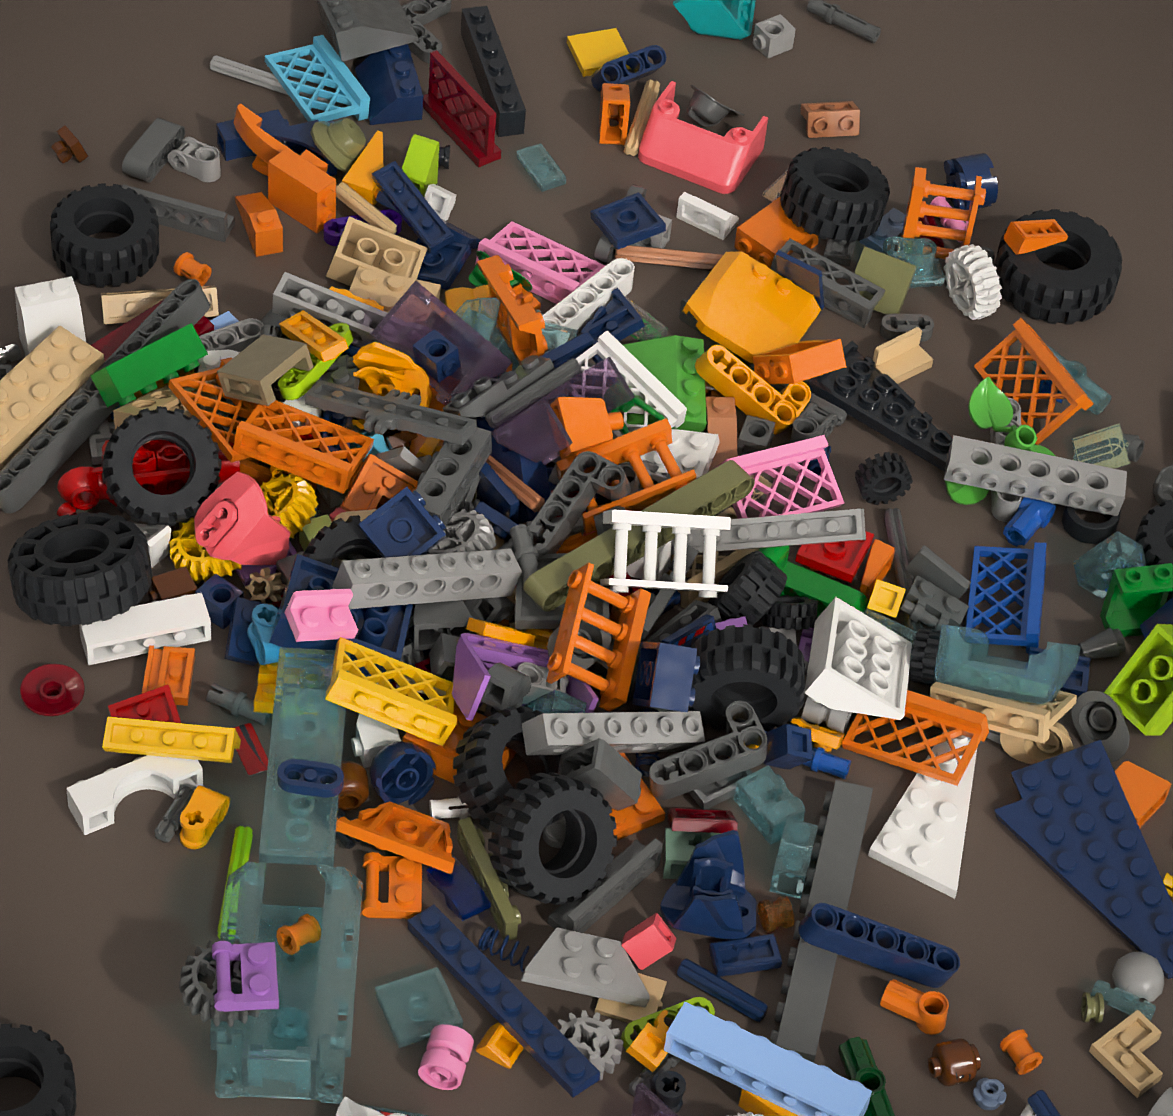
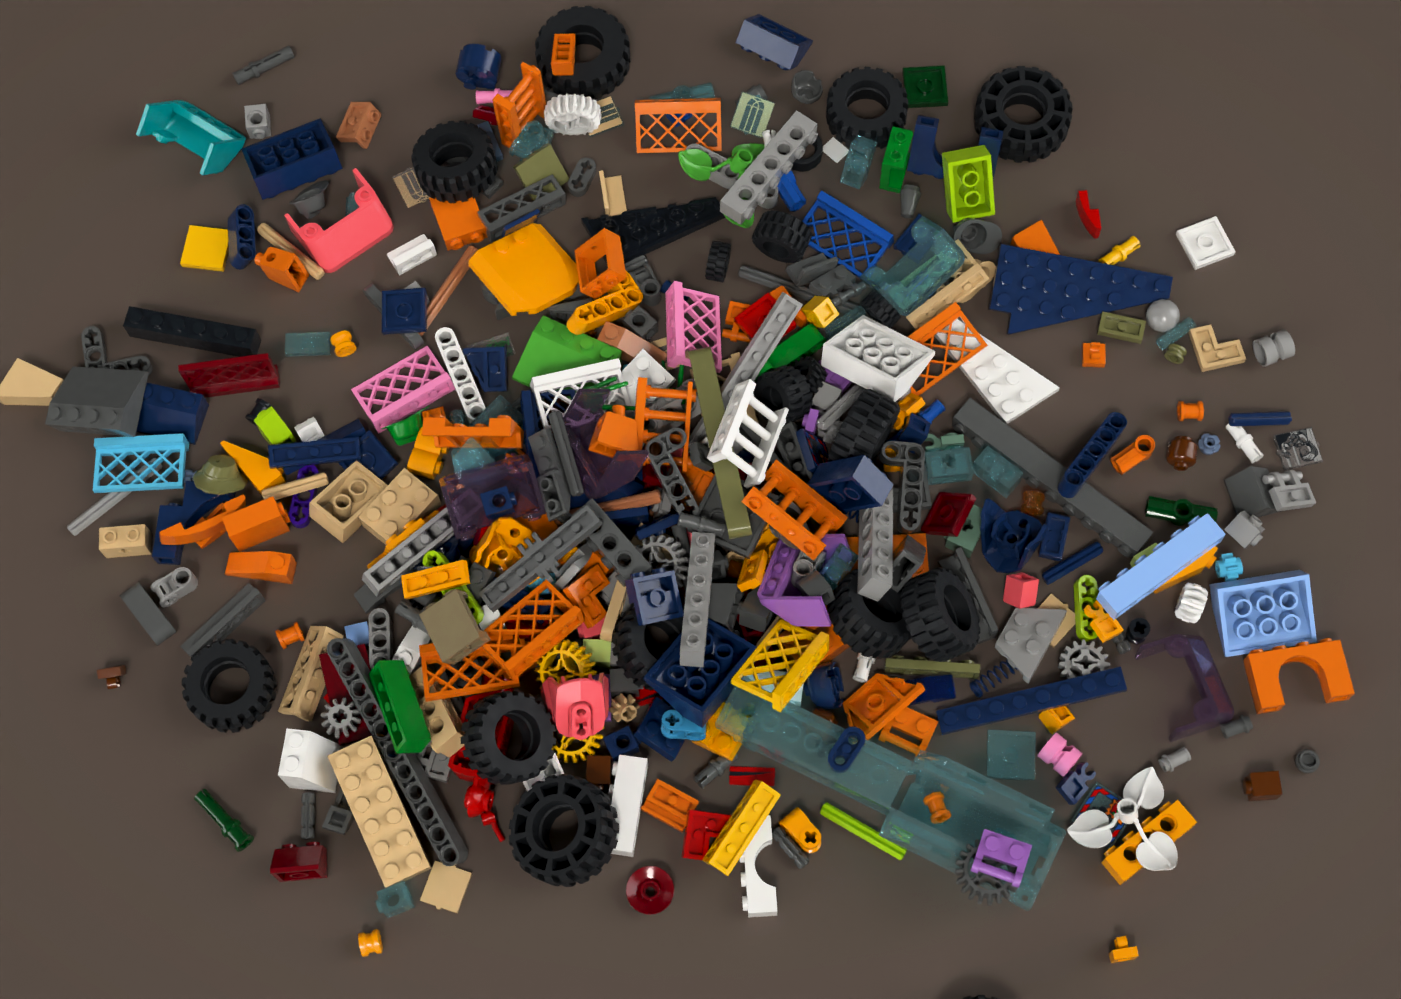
camera: 55 degrees left, 20 degrees up
(111, 329) = (335, 711): none -> light grey gear
(220, 96) = (125, 541): none -> tan brick
(321, 615) = (714, 685): bright pink bracket -> none
(412, 1090) = (1073, 784): none -> dark blue plate
(560, 193) = (343, 343): none -> light orange wheel
(747, 78) = (292, 159): none -> dark blue slope
(801, 789) = (945, 442): none -> sand green plate
(955, 522) = (781, 236): none -> black tyre
(998, 324) = (609, 117): none -> piece
(1029, 917) = (1093, 355): none -> orange tile
(1087, 933) = (1121, 327): none -> olive plate

